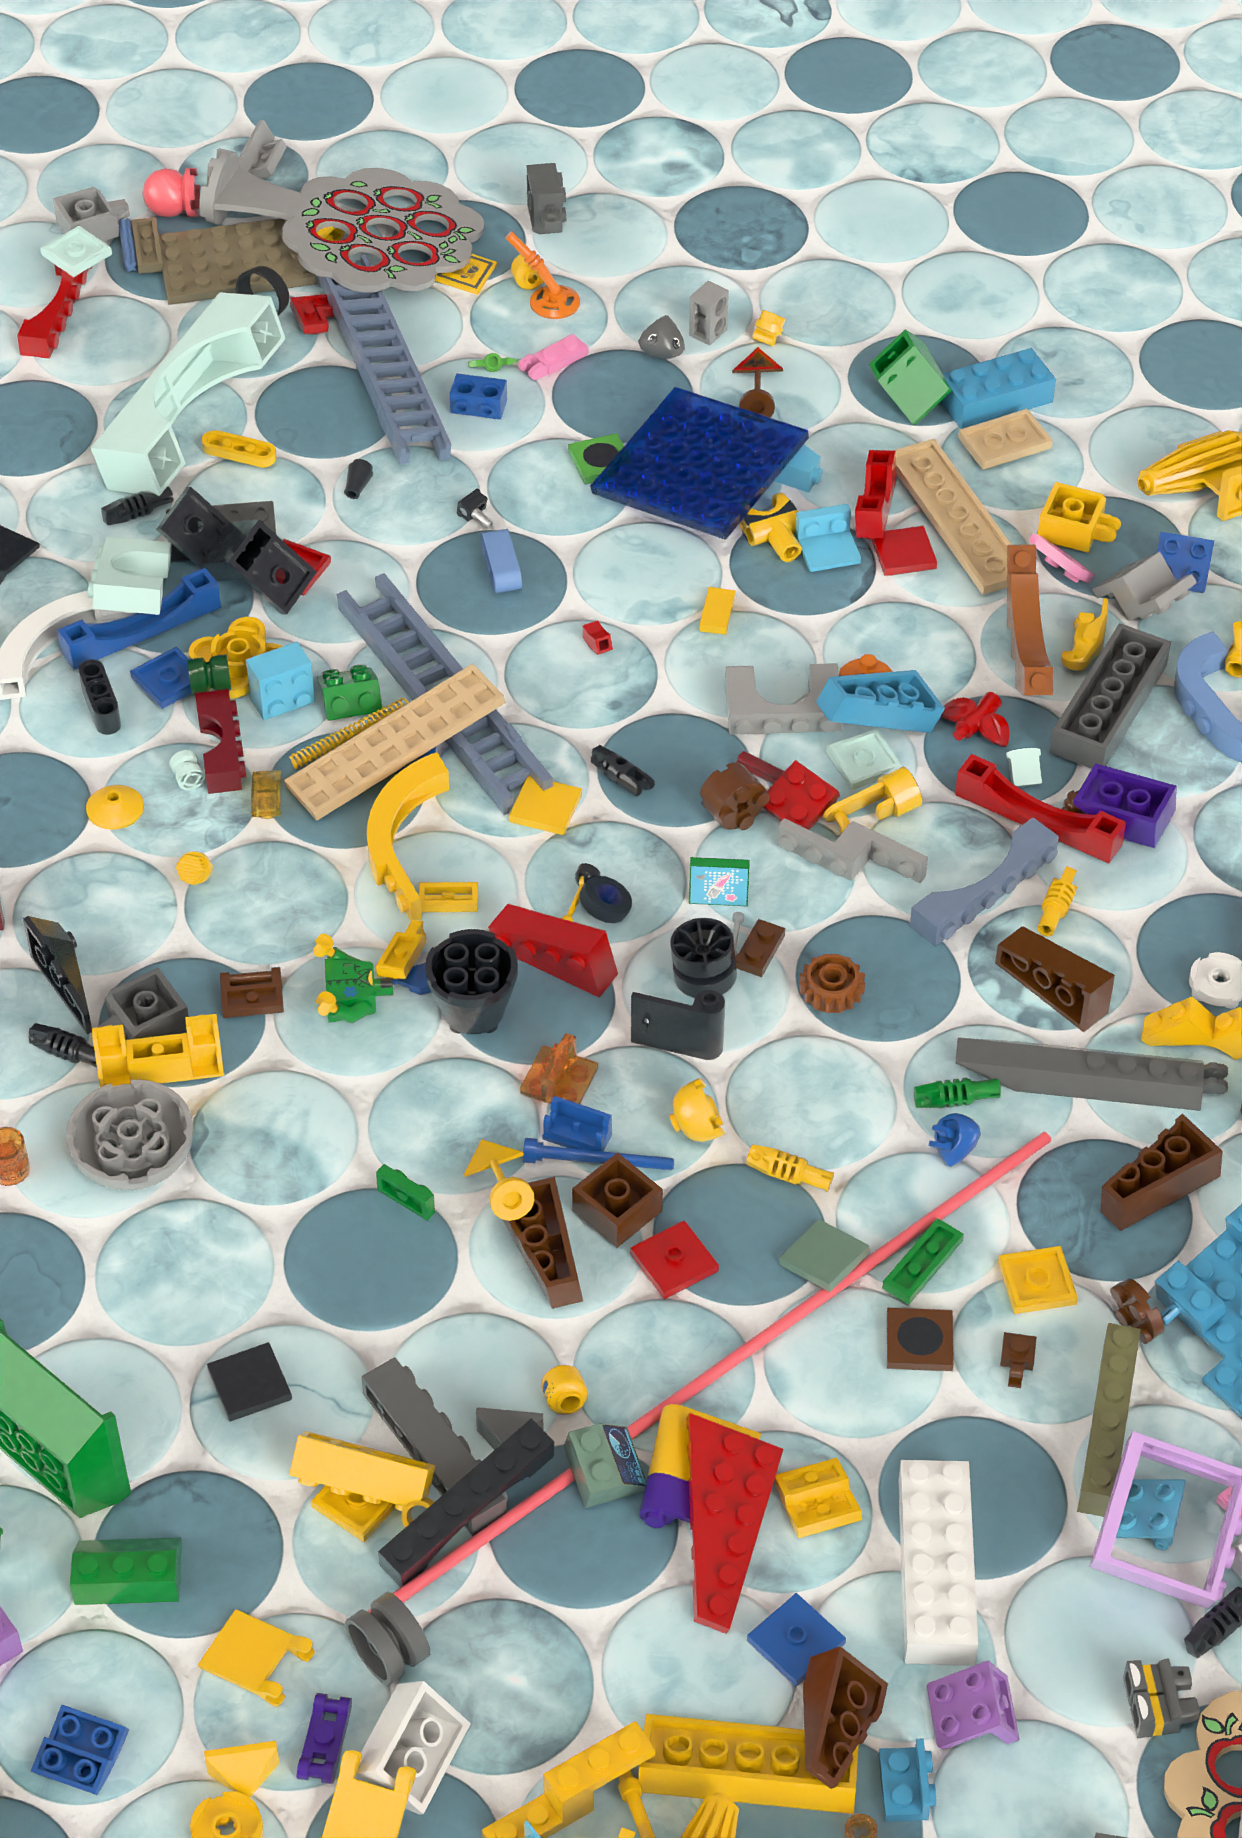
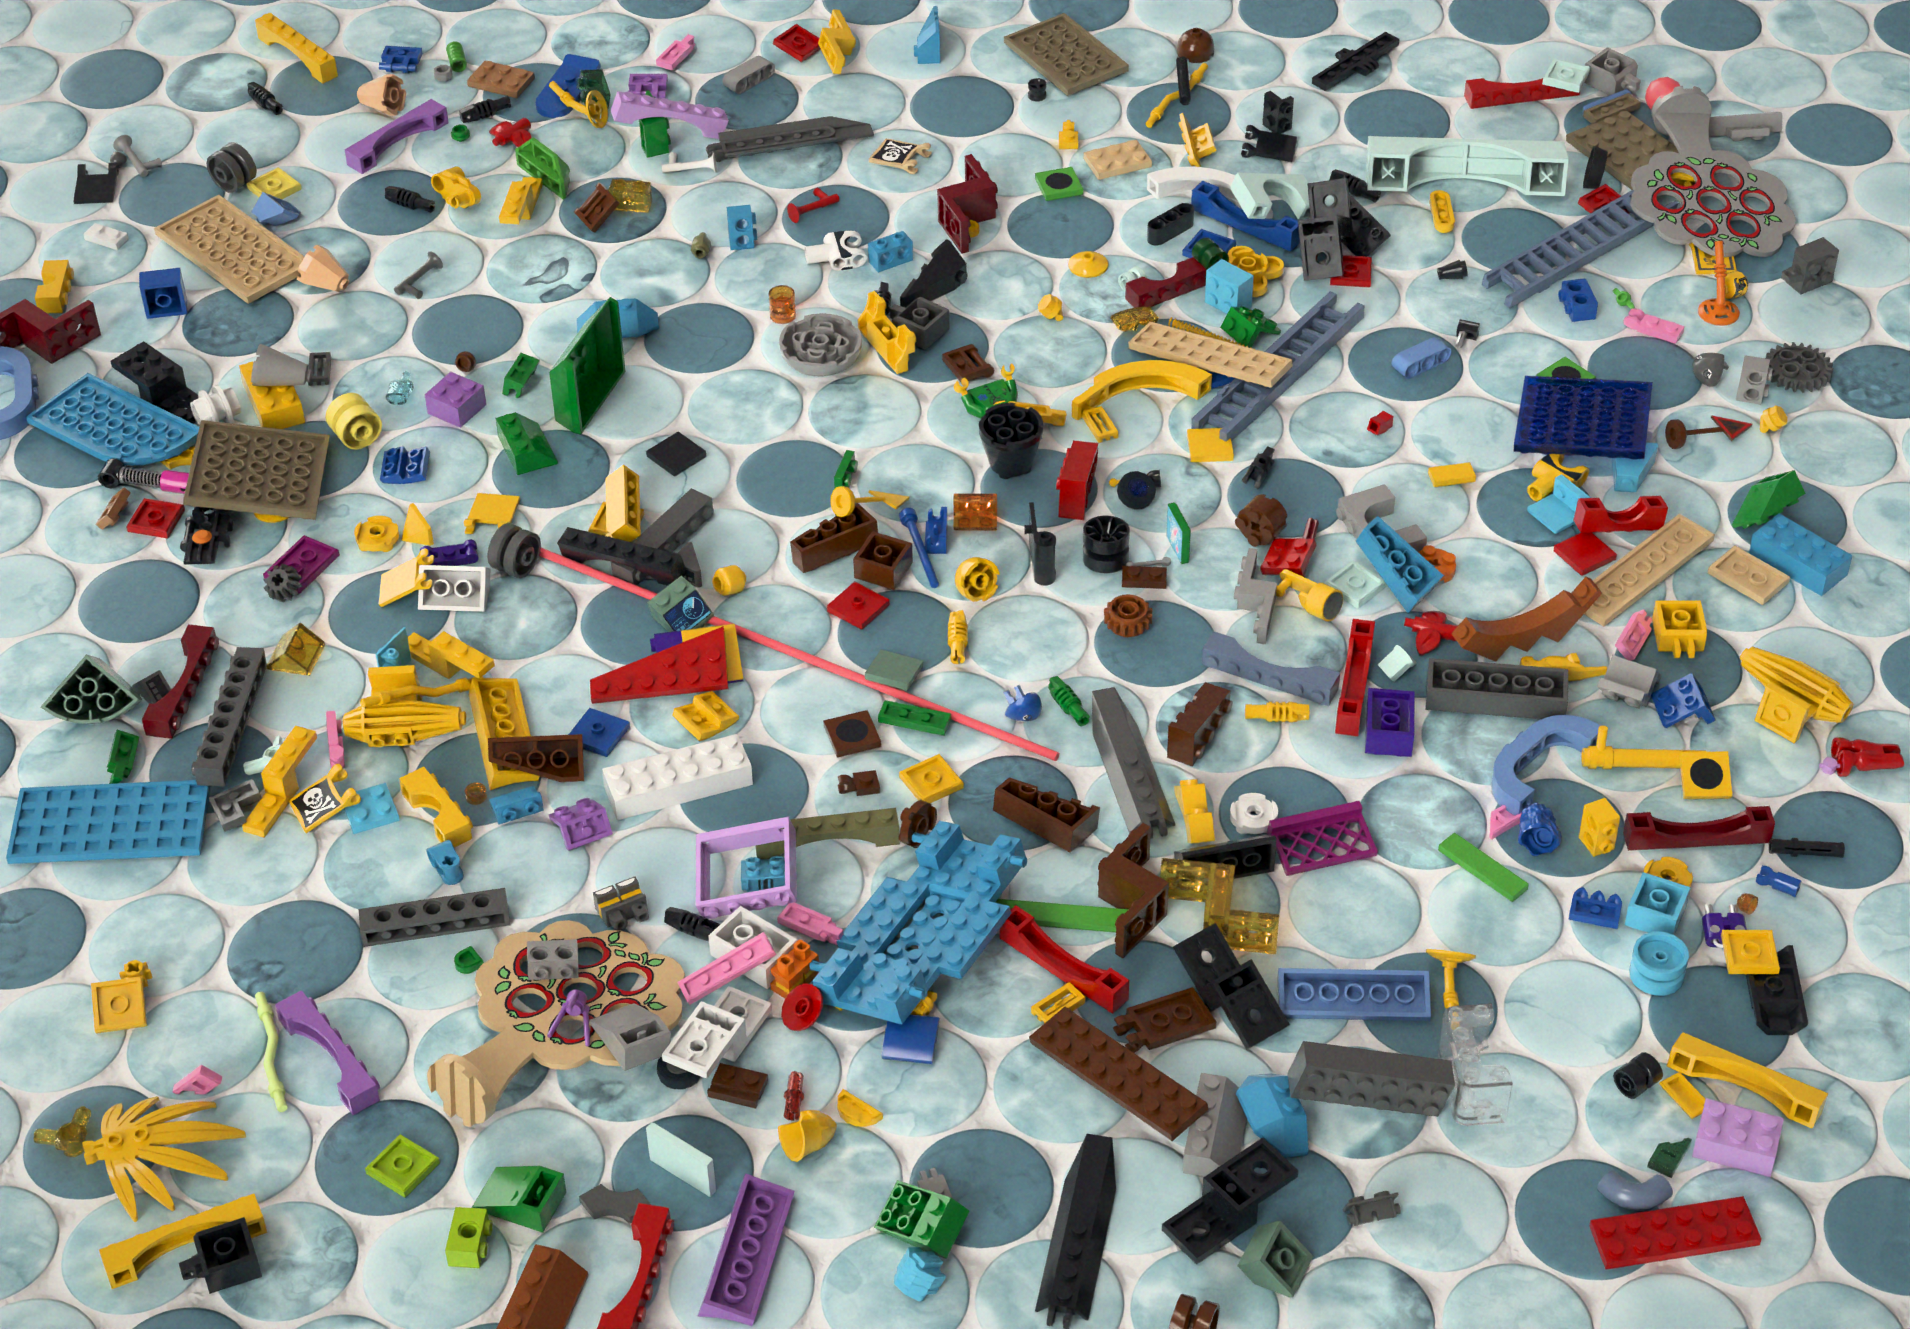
camera: 70 degrees right, 5 degrees down
(679, 270) = (1799, 367): none -> dark grey gear

